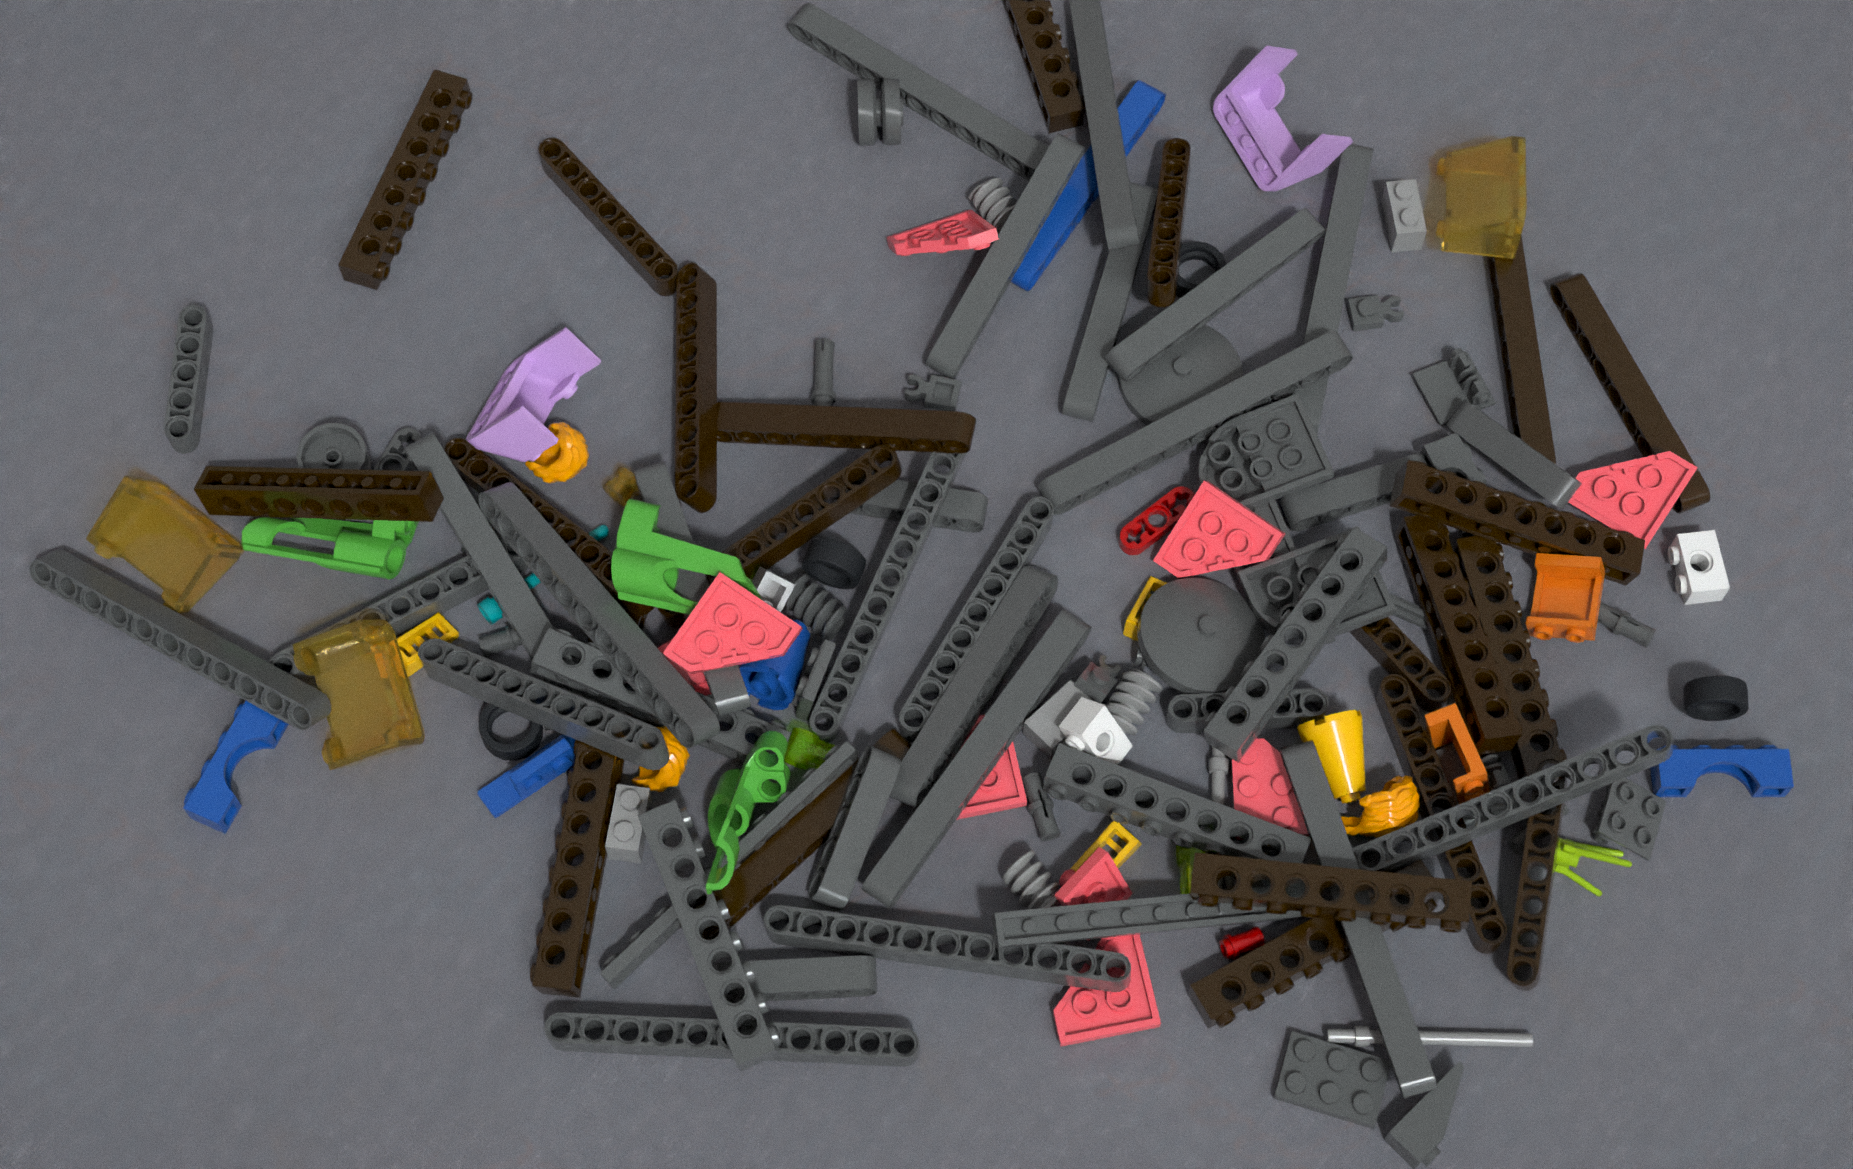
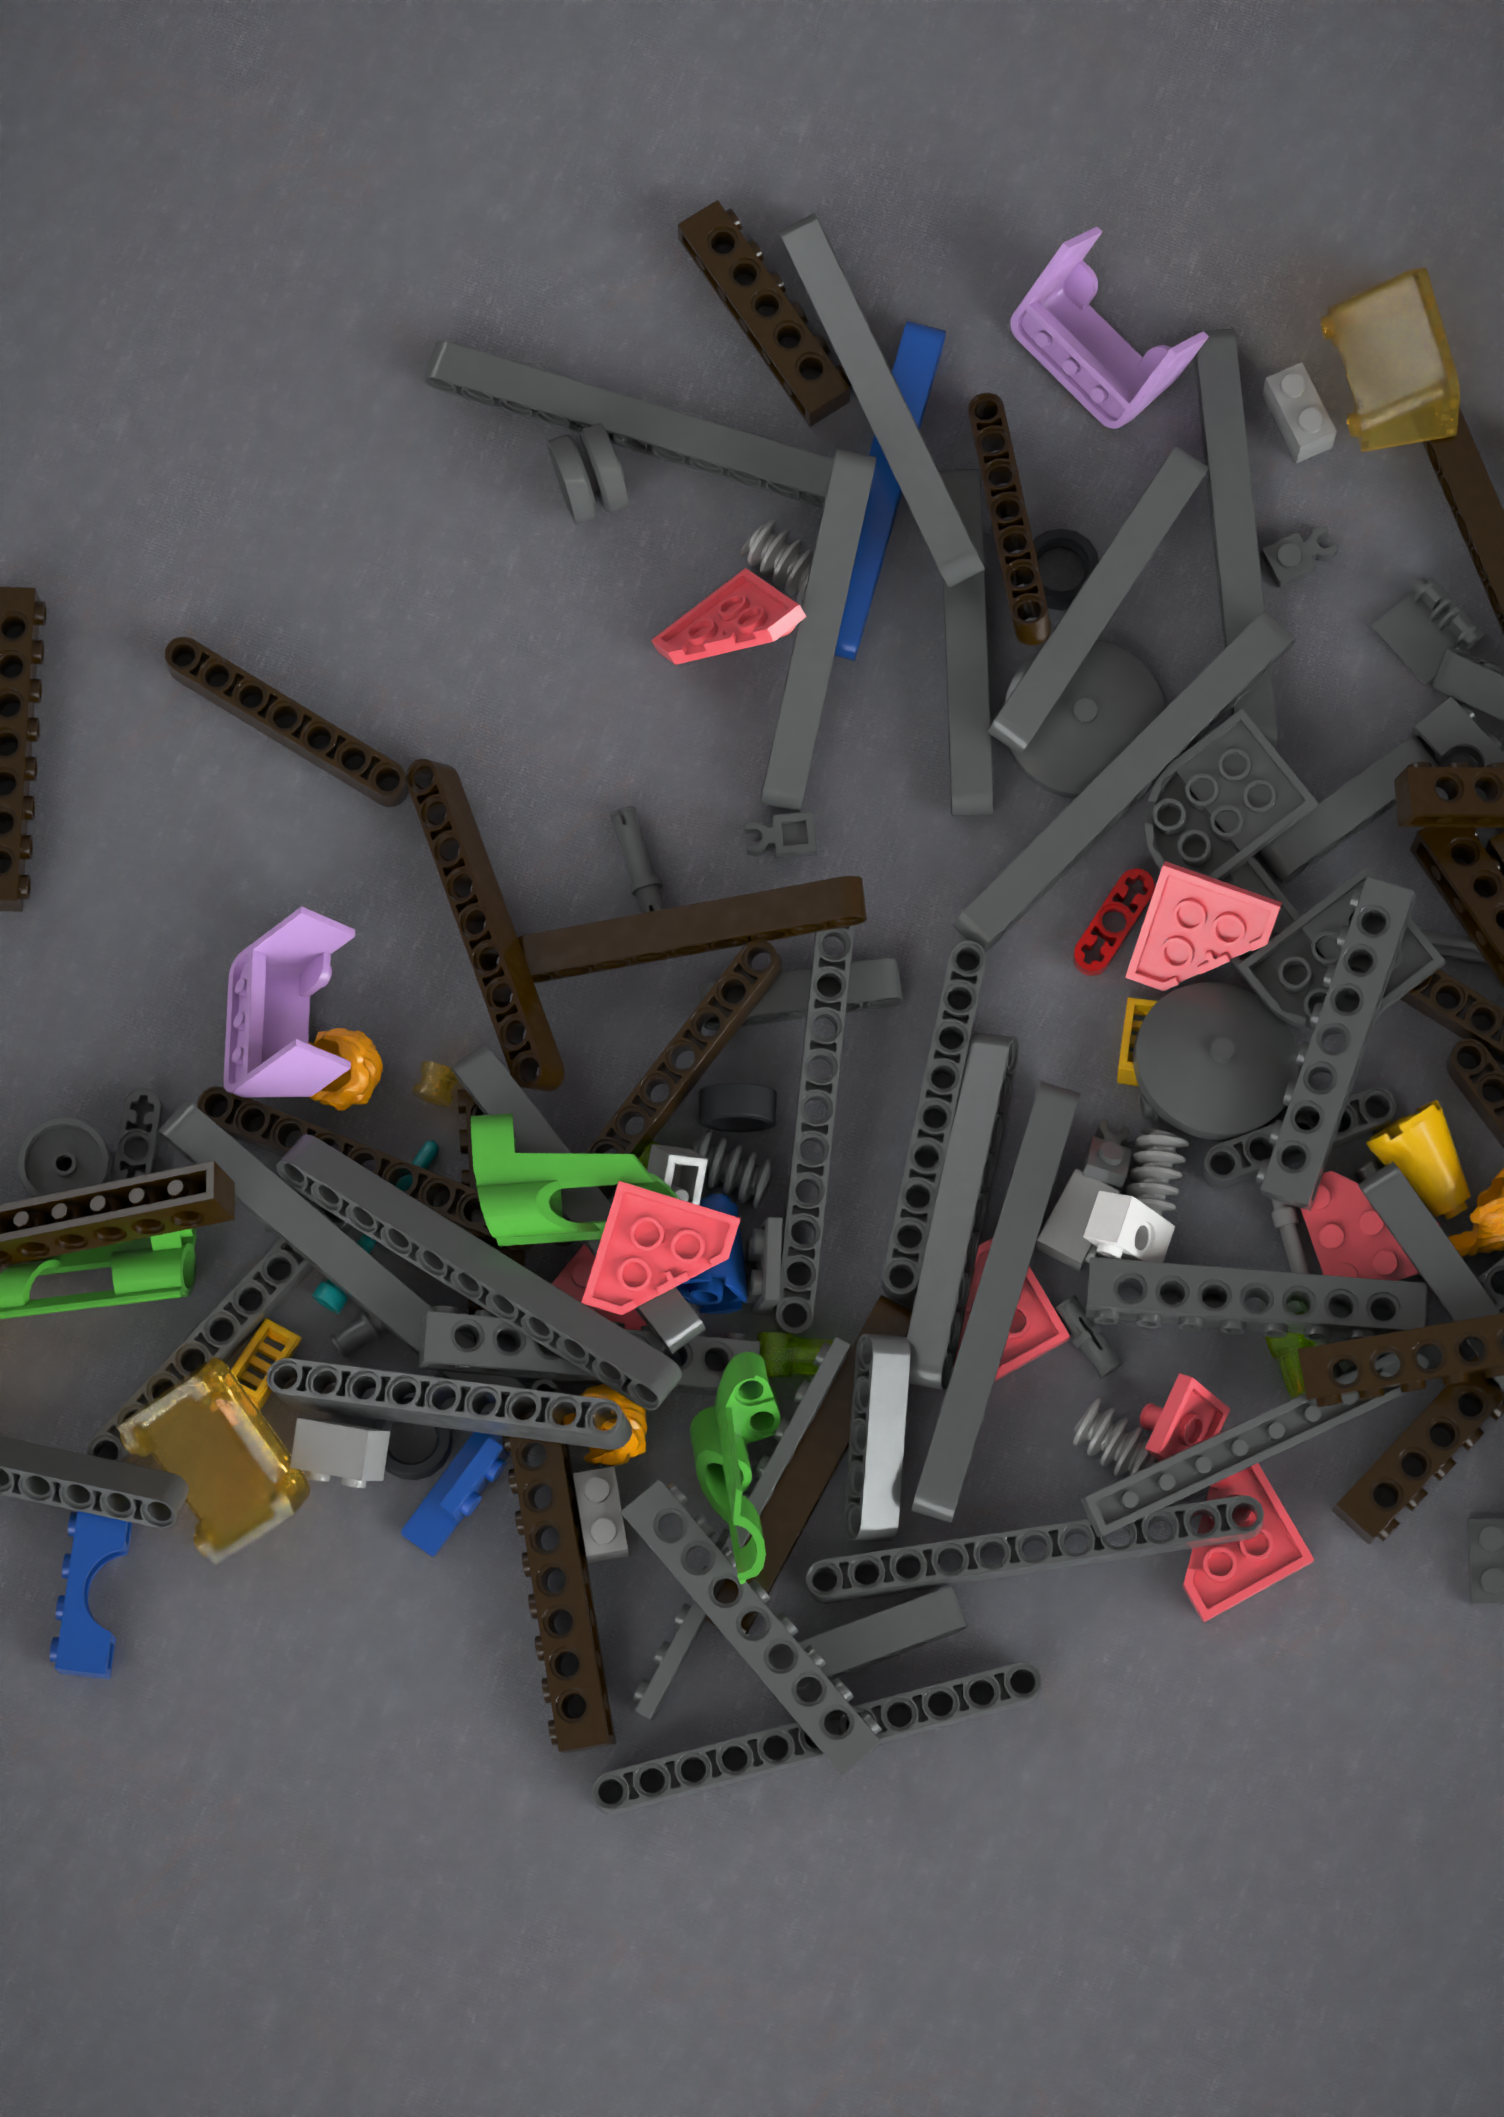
camera: 15 degrees left, 10 degrees up
(453, 716) = (339, 1450): none -> light grey brick
(1106, 838) = (1198, 1339): yellow slope -> none
(1241, 943) = (1378, 1430): red pin -> none

